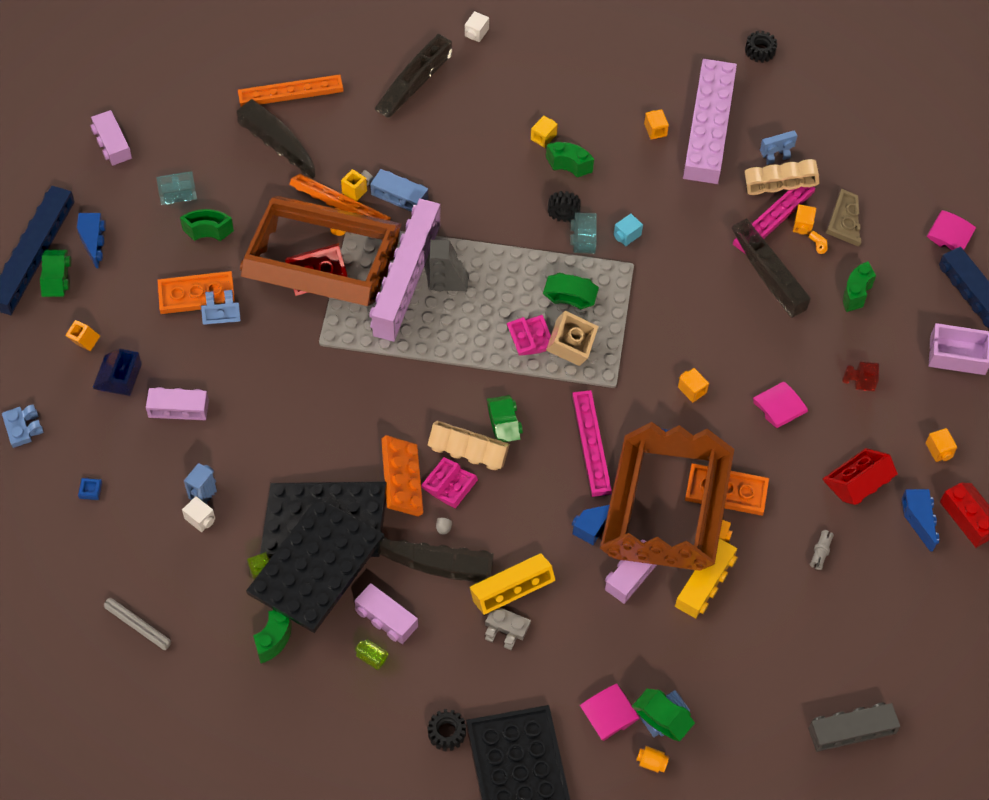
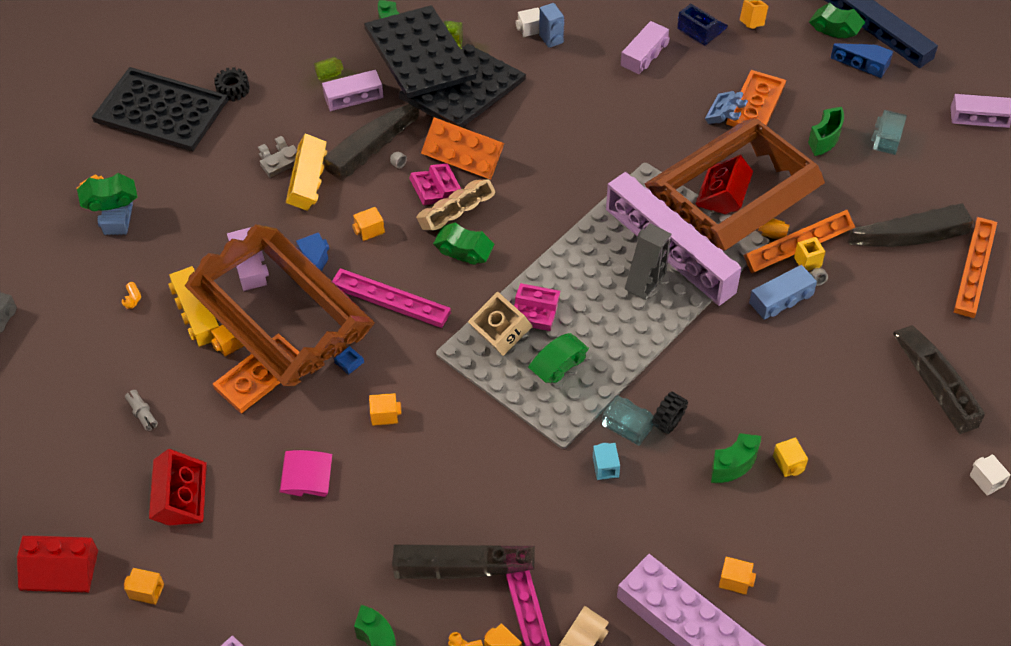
camera: 125 degrees right, 5 degrees down
(531, 502) = (368, 224): none -> light orange brick
(609, 711) = (154, 182): dark pink slope -> none
(731, 636) = (134, 296): none -> light orange arm
(866, 376) = (271, 567): clear red brick -> none
(919, 513) = (98, 512): blue slope -> none

